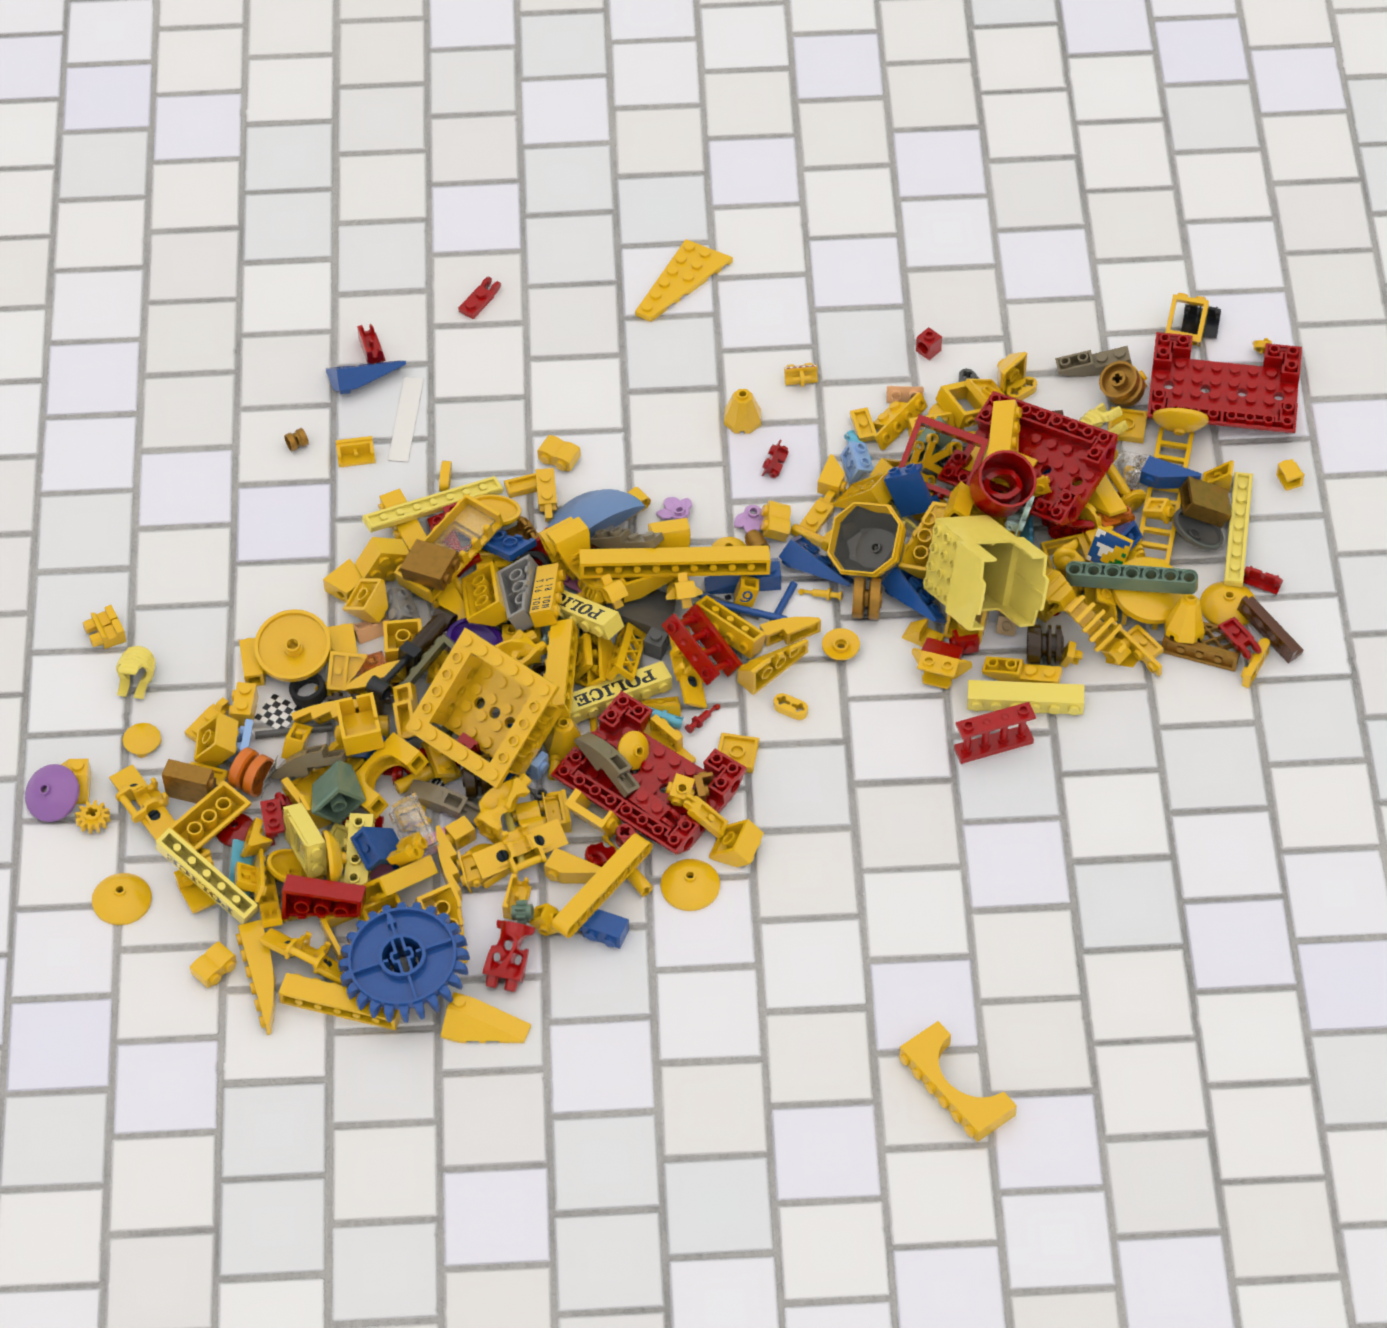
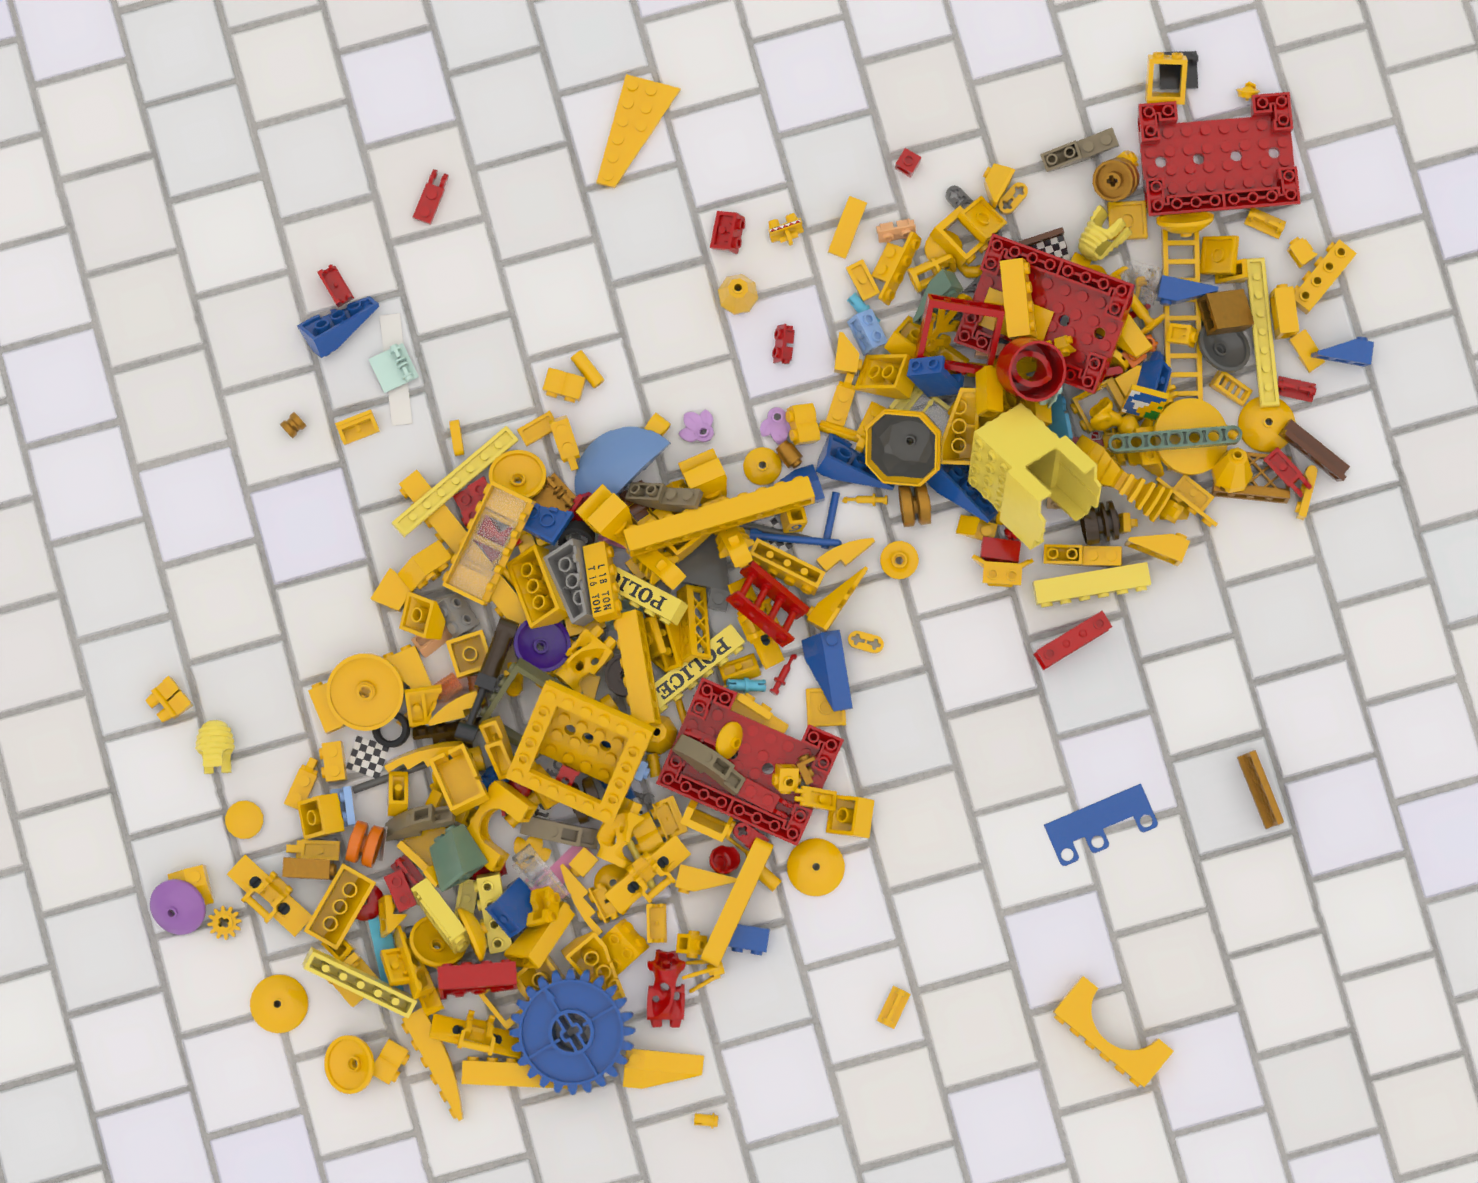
camera: 15 degrees left, 30 degrees up
(172, 955) = (342, 1067): none -> yellow dish
(404, 414) = (393, 367): none -> light aqua hinge
(430, 564) = (479, 577): pearl gold brick -> none
(477, 909) = (624, 945): none -> yellow bracket
(516, 1080) = (706, 1120): none -> yellow pin
(522, 911) = (668, 947): sand green gear -> none
(563, 948) = (711, 970): none -> yellow plant
(587, 451) = (587, 369): none -> yellow piece
(737, 1017) = (893, 1007): none -> yellow hinge
(746, 367) = (727, 231): none -> red bracket
(747, 711) = (827, 662): none -> blue wedge
(859, 381) = (847, 227): none -> yellow slope
(982, 897) = (1097, 816): none -> blue piece
(1099, 673) = (1165, 547): none -> yellow slope
(1157, 896) = (1260, 789): none -> pearl gold fence
(1193, 556) = (1234, 382): none -> yellow slope
(1210, 459) = (1219, 255): none -> yellow tile
(1259, 448) = (1265, 223): none -> yellow hinge
(1262, 512) = (1284, 312): none -> yellow window
(1280, 551) = (1304, 347): none -> yellow slope
(1306, 496) = (1323, 276): none -> yellow brick
(1319, 556) = (1353, 352): none -> blue slope

